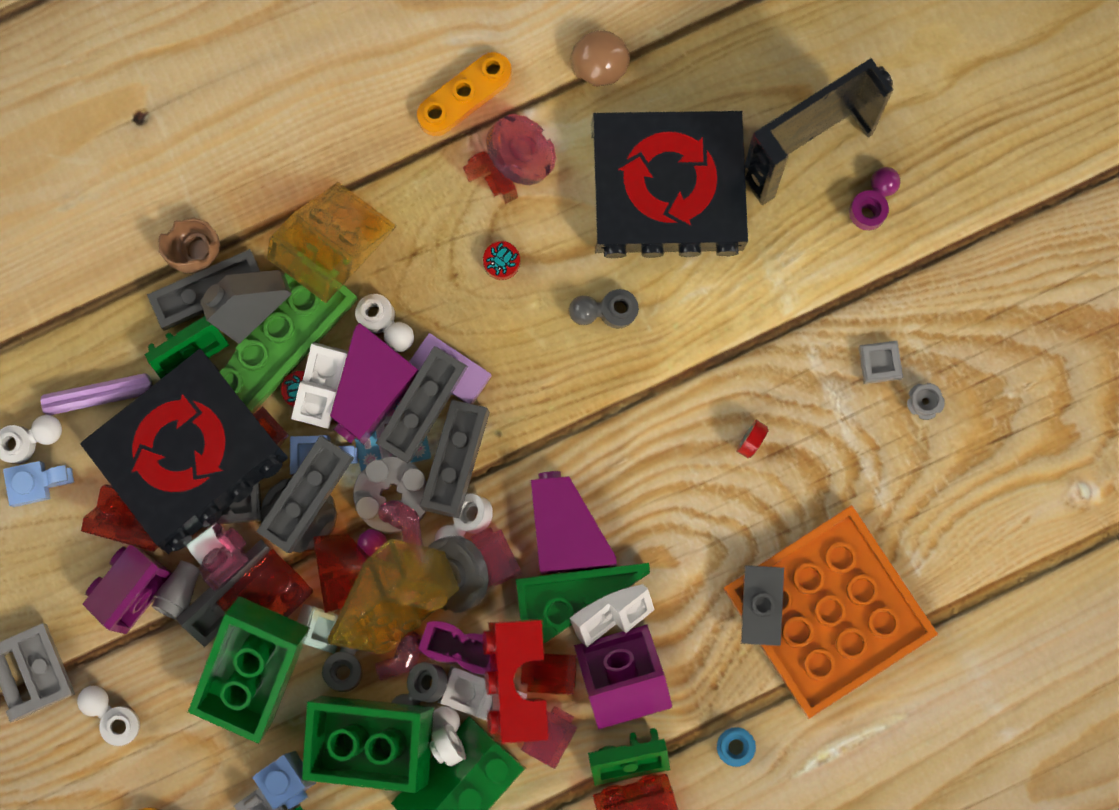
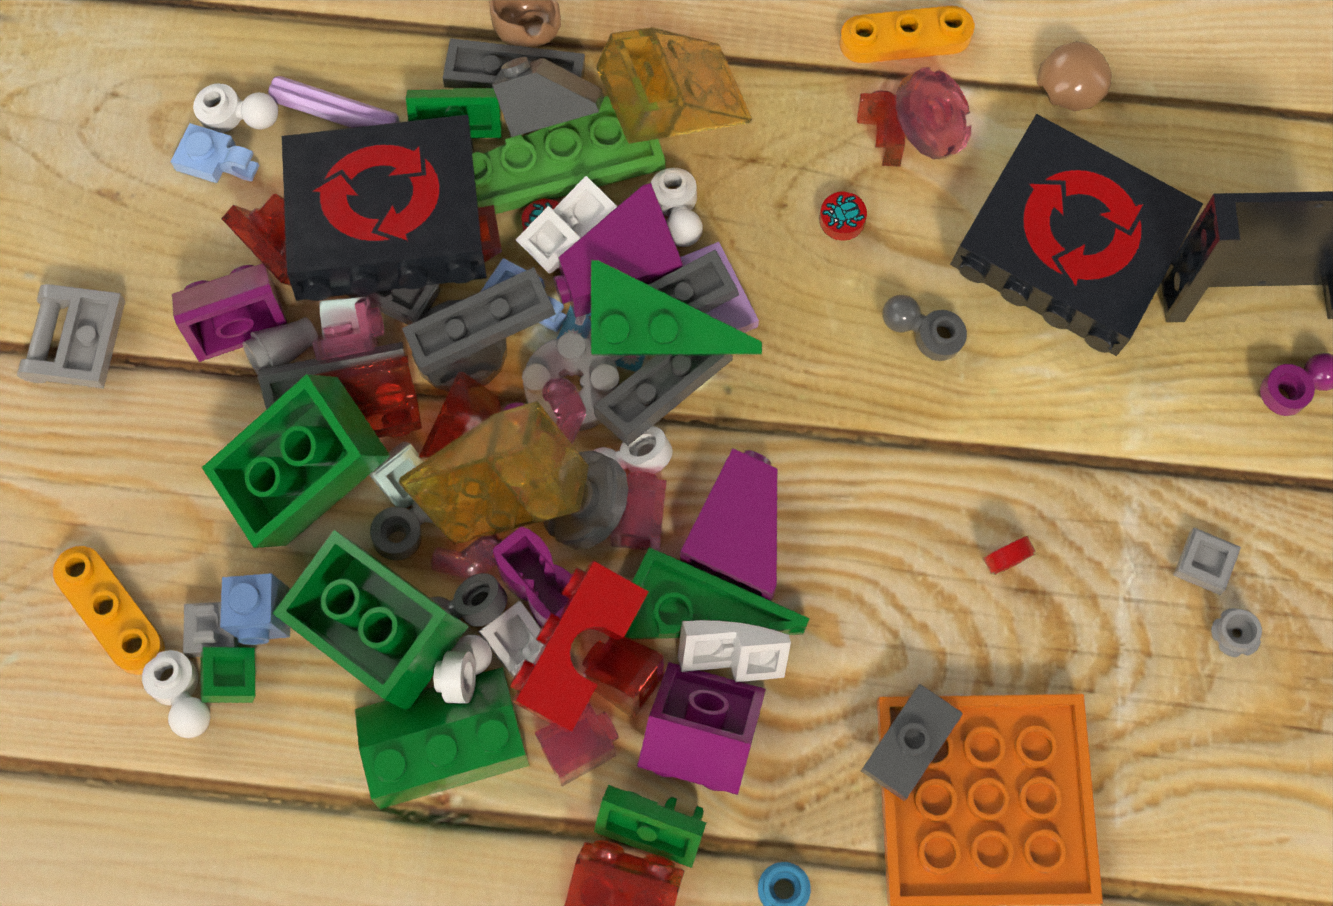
camera: 25 degrees right, 10 degrees down
(94, 702) = (116, 406): white plate -> none
(416, 427) = (643, 321): none -> green wing

